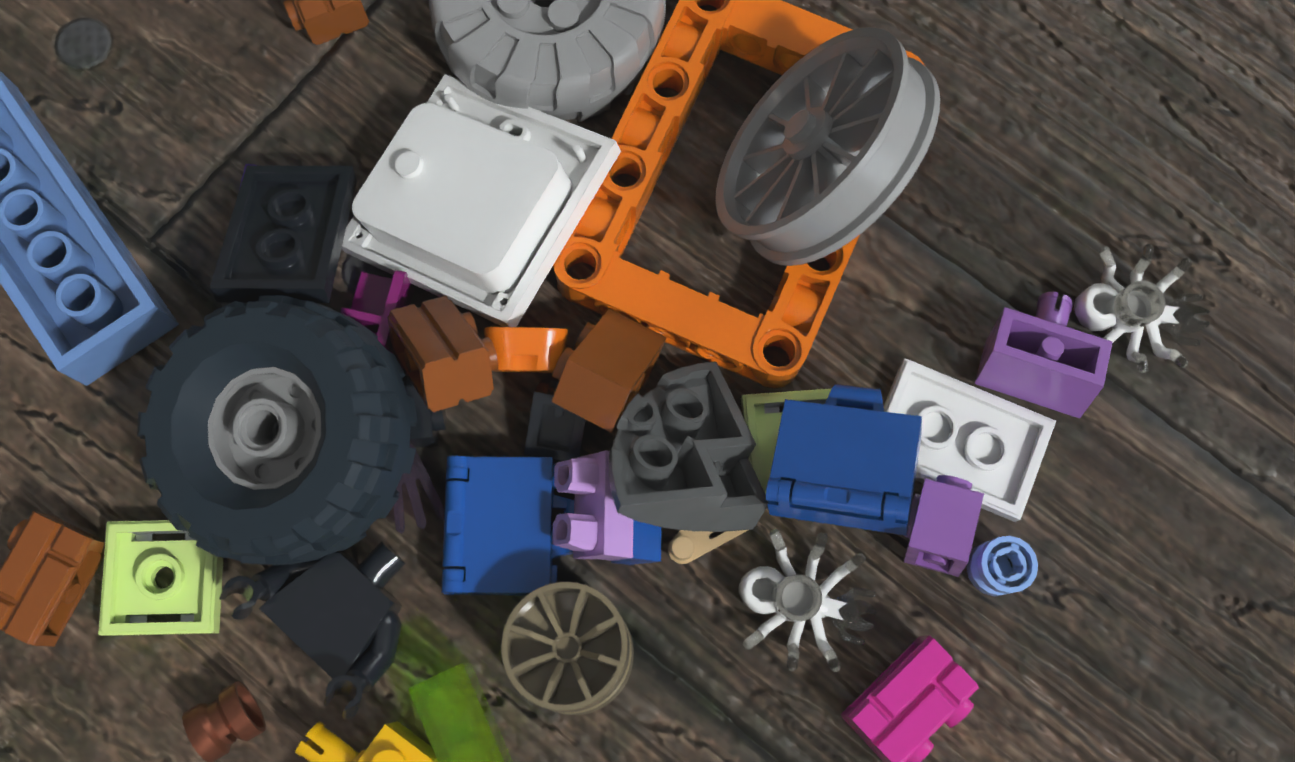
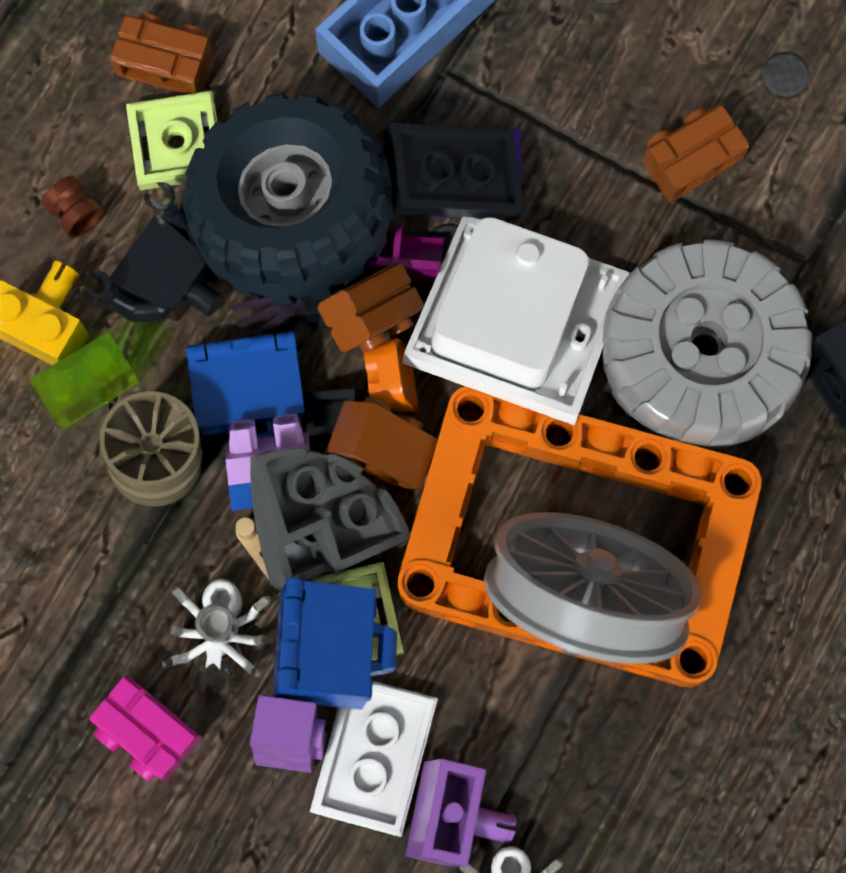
camera: 85 degrees right, 0 degrees up
(990, 566) = (272, 800): light blue wheel -> none

